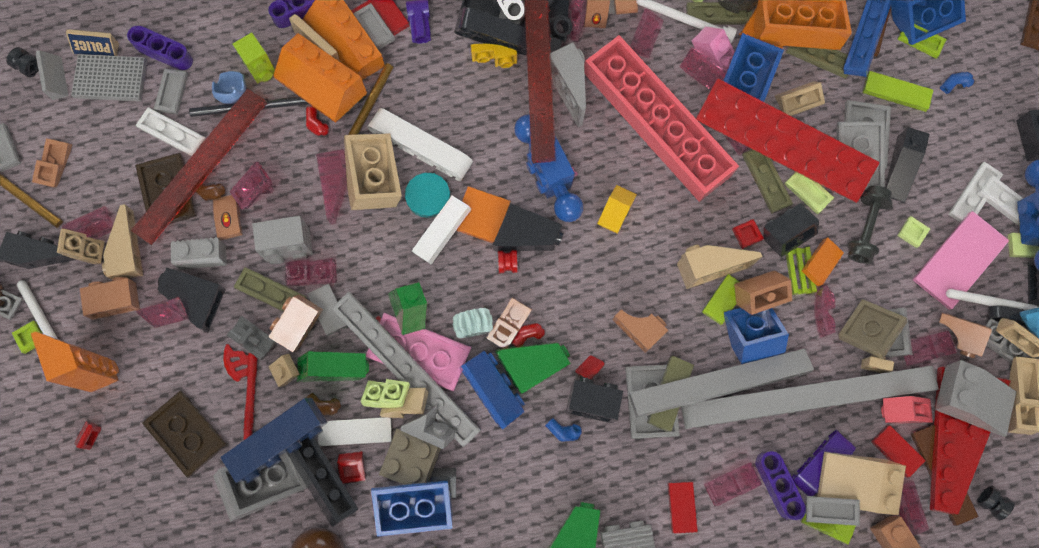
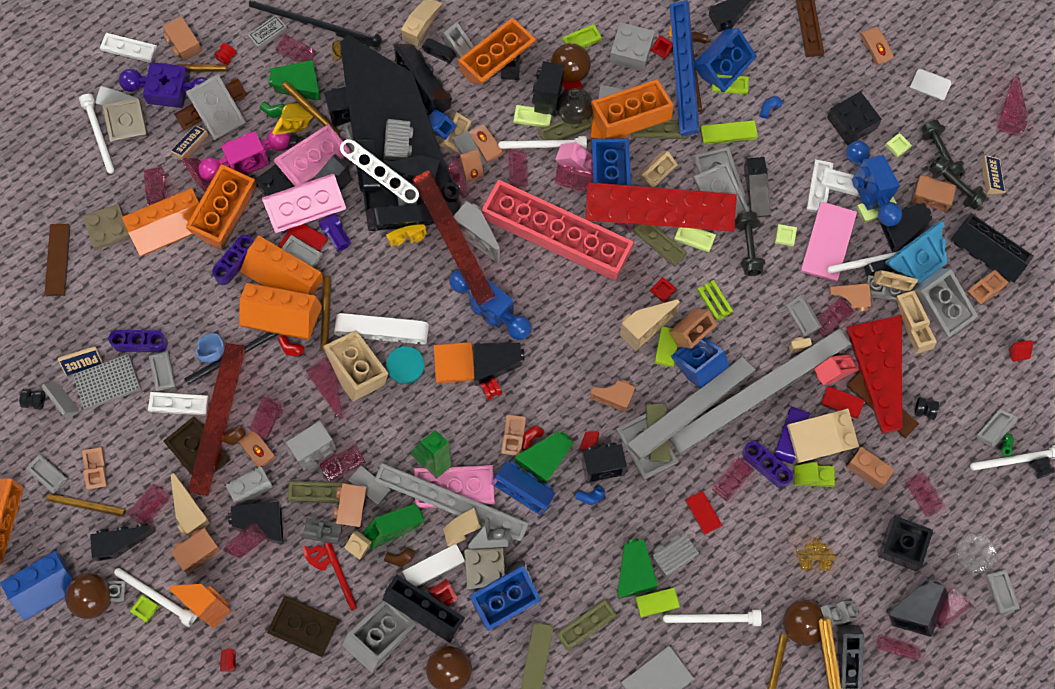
camera: 20 degrees left, 5 degrees down
(80, 247) = (155, 520): tan slope -> none
(254, 58) = (221, 317): lime brick -> none
(274, 440) = (381, 592): dark blue brick -> none
(306, 31) = (244, 277): tan tile -> none
(385, 395) = (445, 528): yellowish green slope -> none
(441, 230) = (429, 387): white tile -> none
(472, 323) = (486, 445): light aqua gear -> none
(616, 209) = (555, 313): yellow slope -> none
(790, 229) = (693, 273): black brick -> none
(822, 262) = (727, 286): orange tile -> none
(823, 303) = (742, 318): clear pink slope -> none
(833, 510) = (810, 463): light grey tile -> none
(872, 328) = (785, 320): dark tan plate -> none
(912, 510) = (868, 439): clear pink slope -> none
(976, 397) = (880, 338): light grey slope -> none

